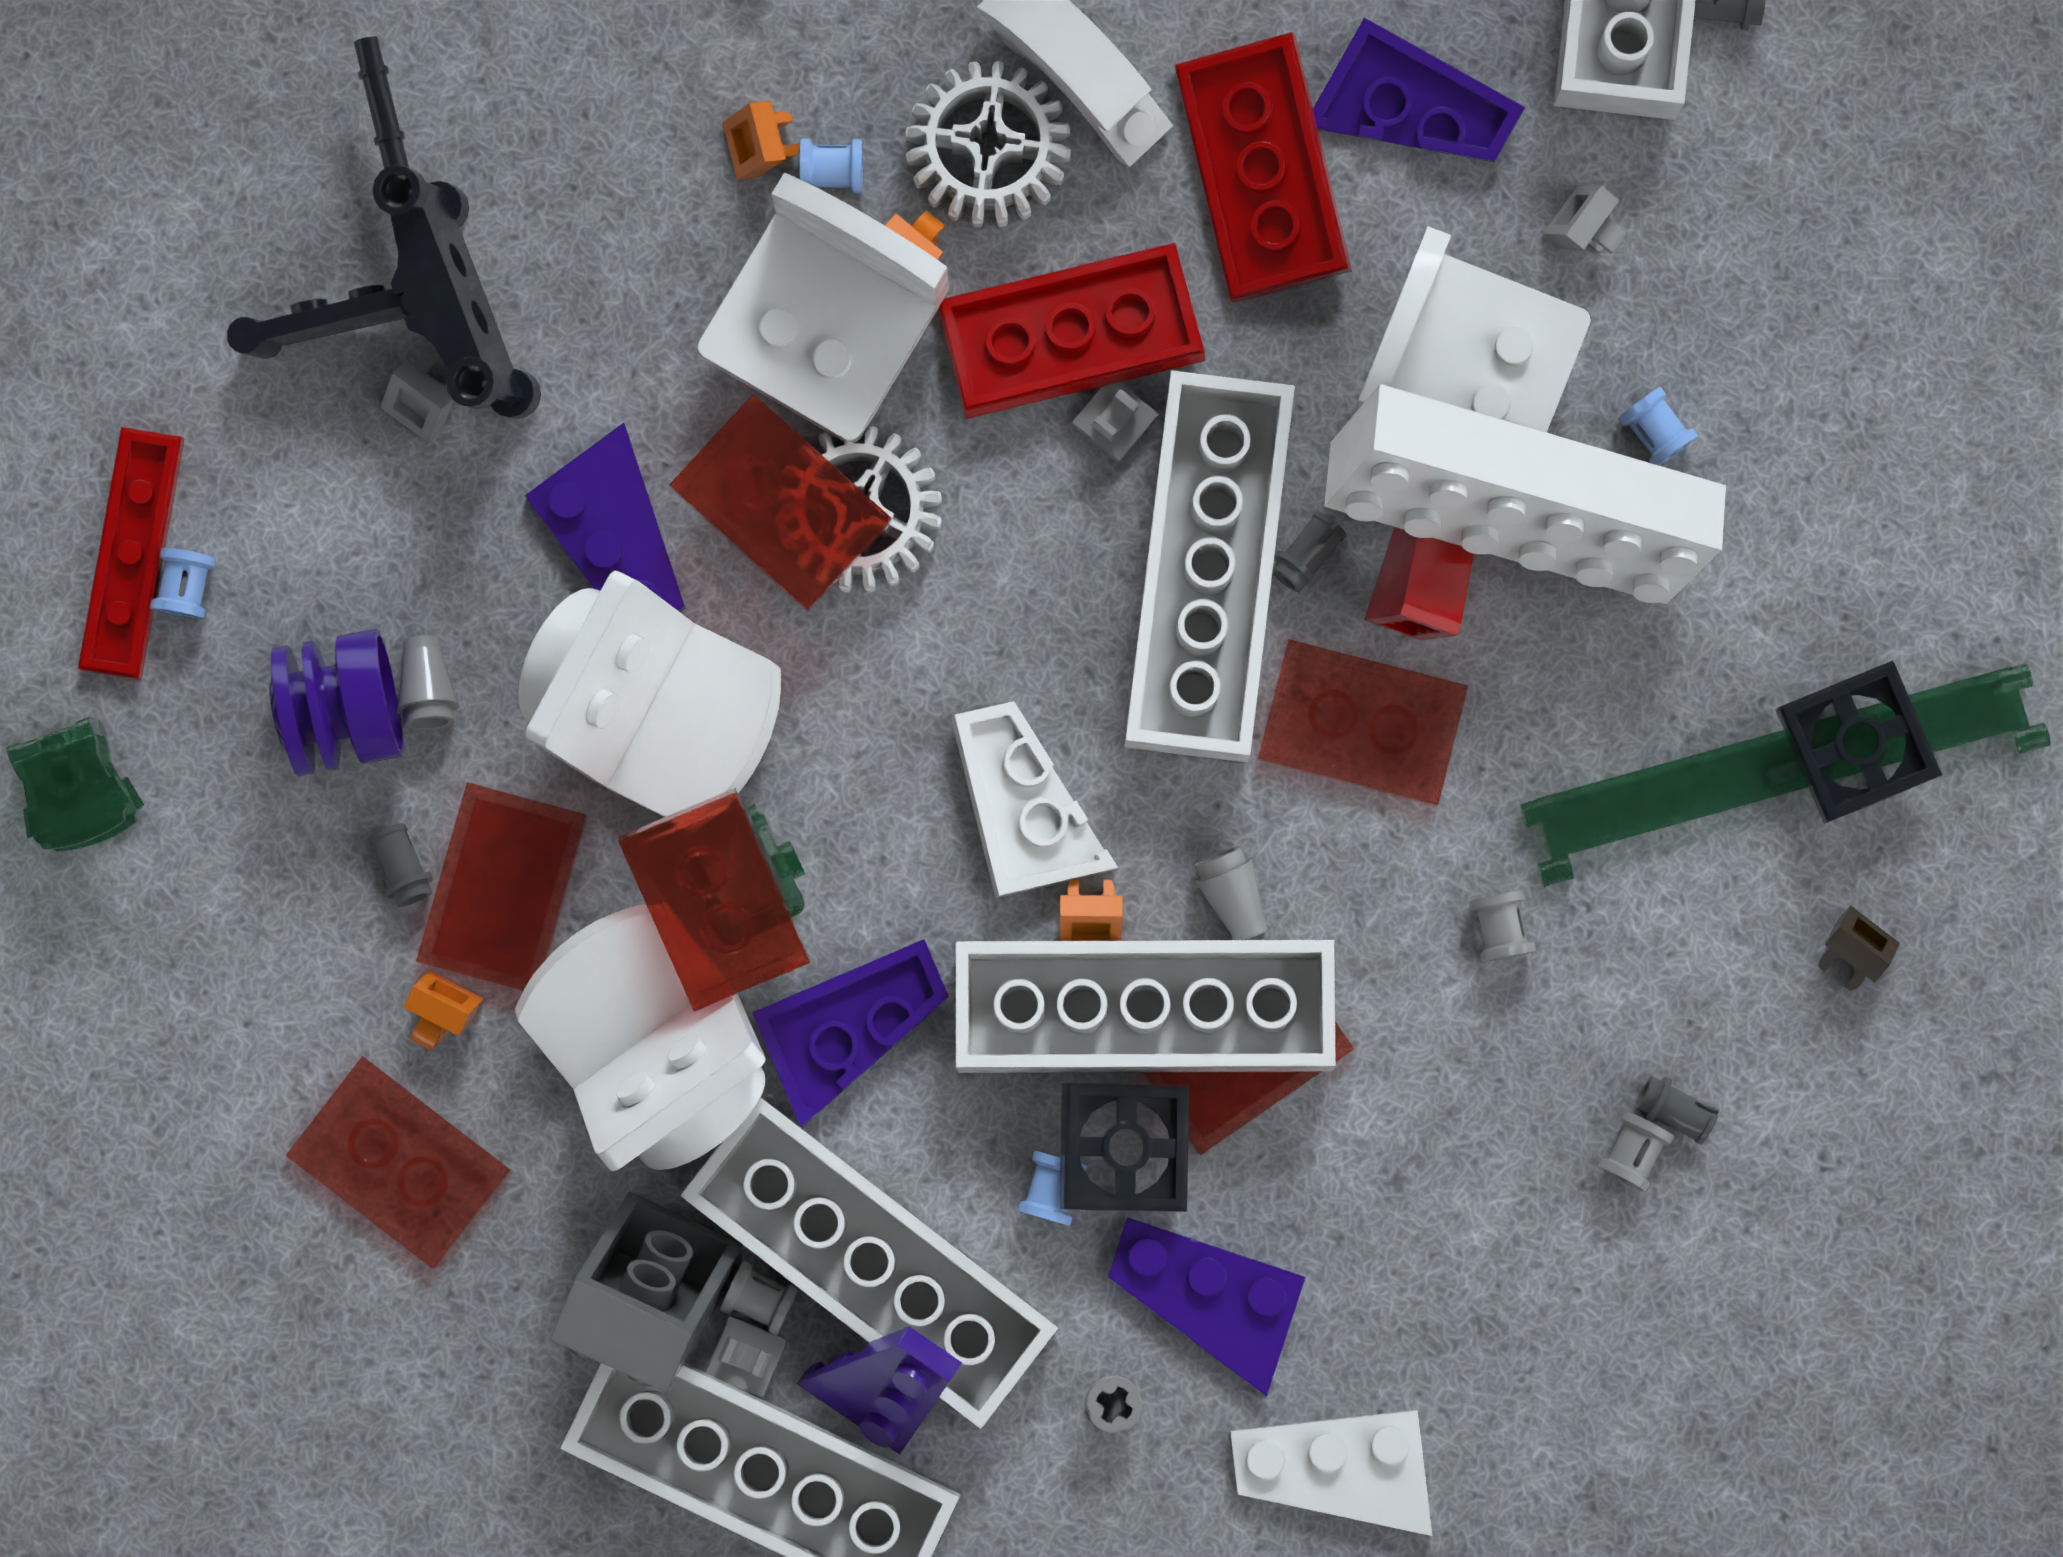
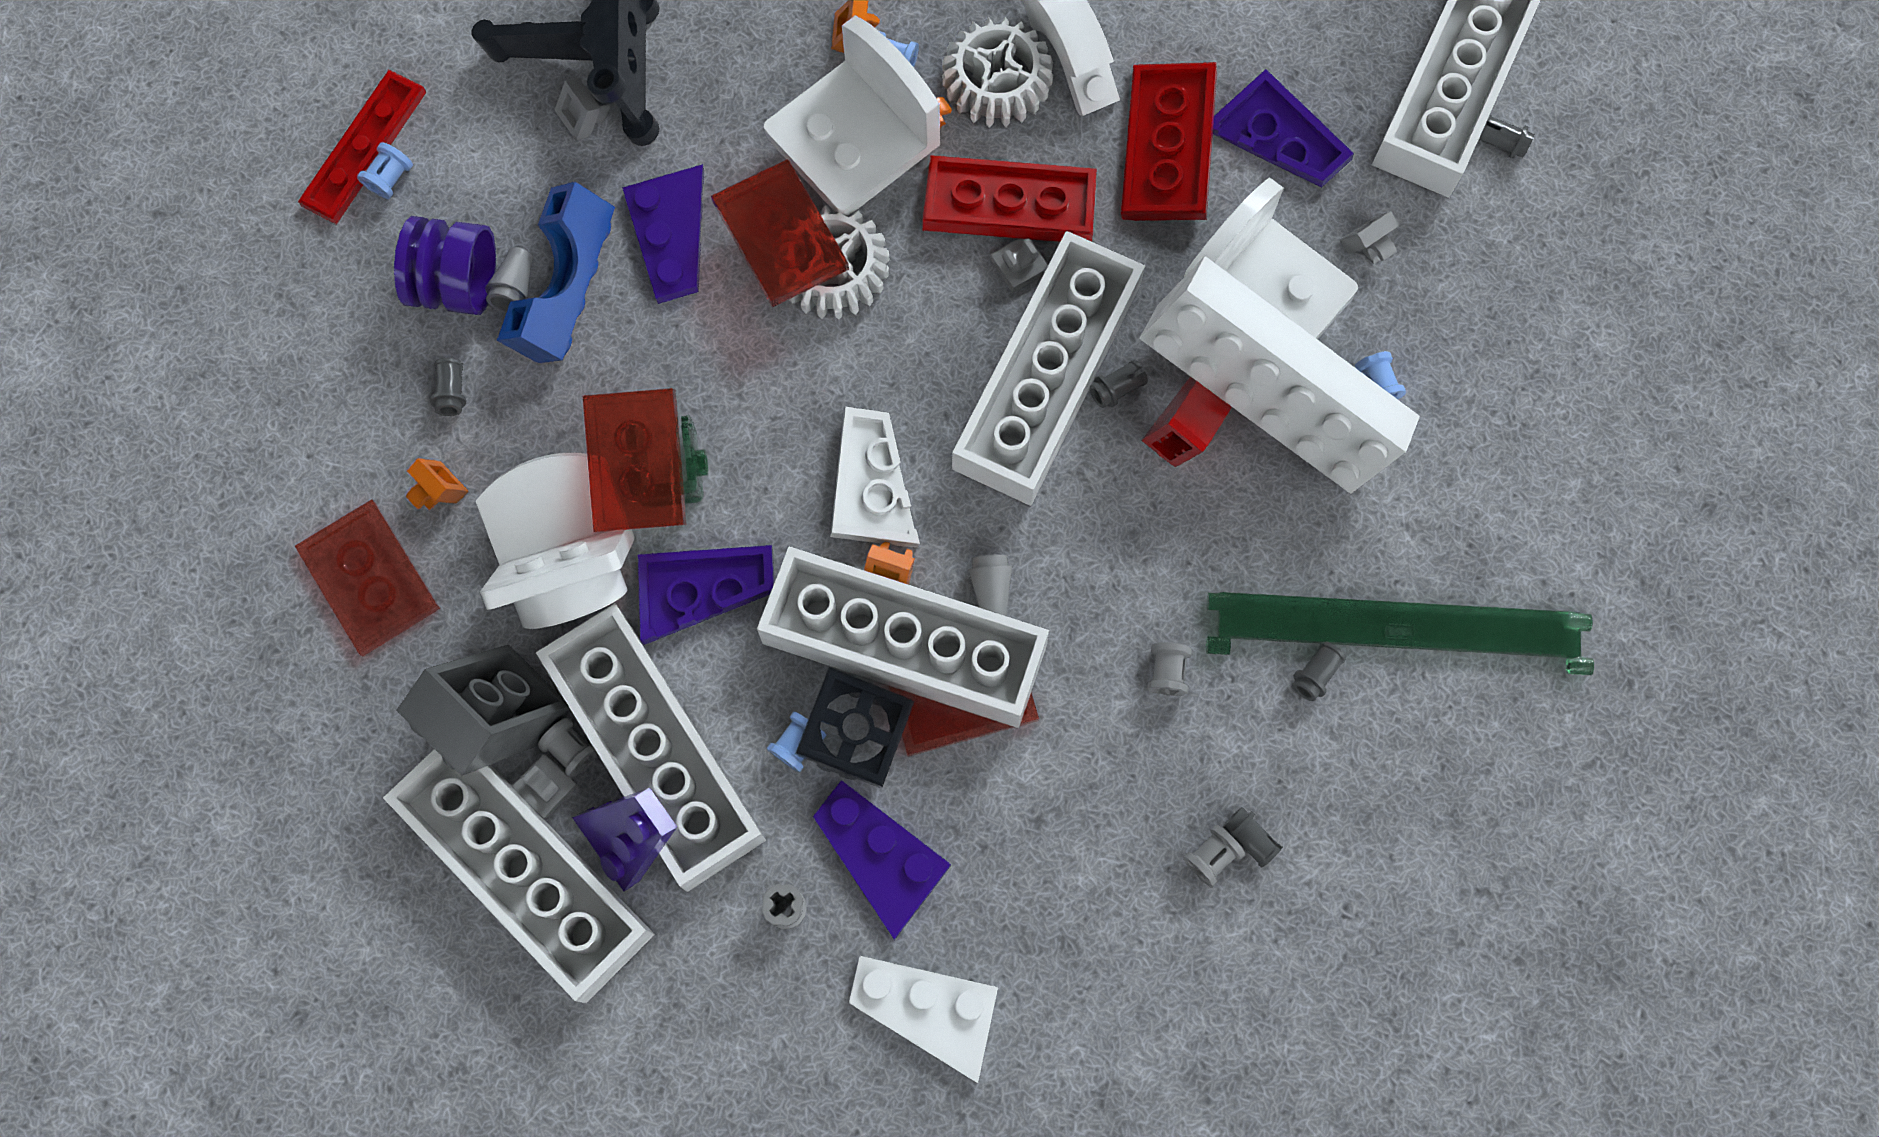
camera: 20 degrees right, 10 degrees down
(73, 788) = (257, 265): clear green piece -> none
(491, 586) = (575, 227): none -> blue arch
(501, 887) = (508, 420): clear red tile -> none
(646, 698) = (641, 318): white piece -> none
(1362, 722) = (1118, 506): clear red tile -> none
(1696, 862) = (1313, 678): none -> dark grey pin
(1861, 945) = (1419, 766): dark brown tile -> none
(1878, 683) = (1428, 656): black piece -> none

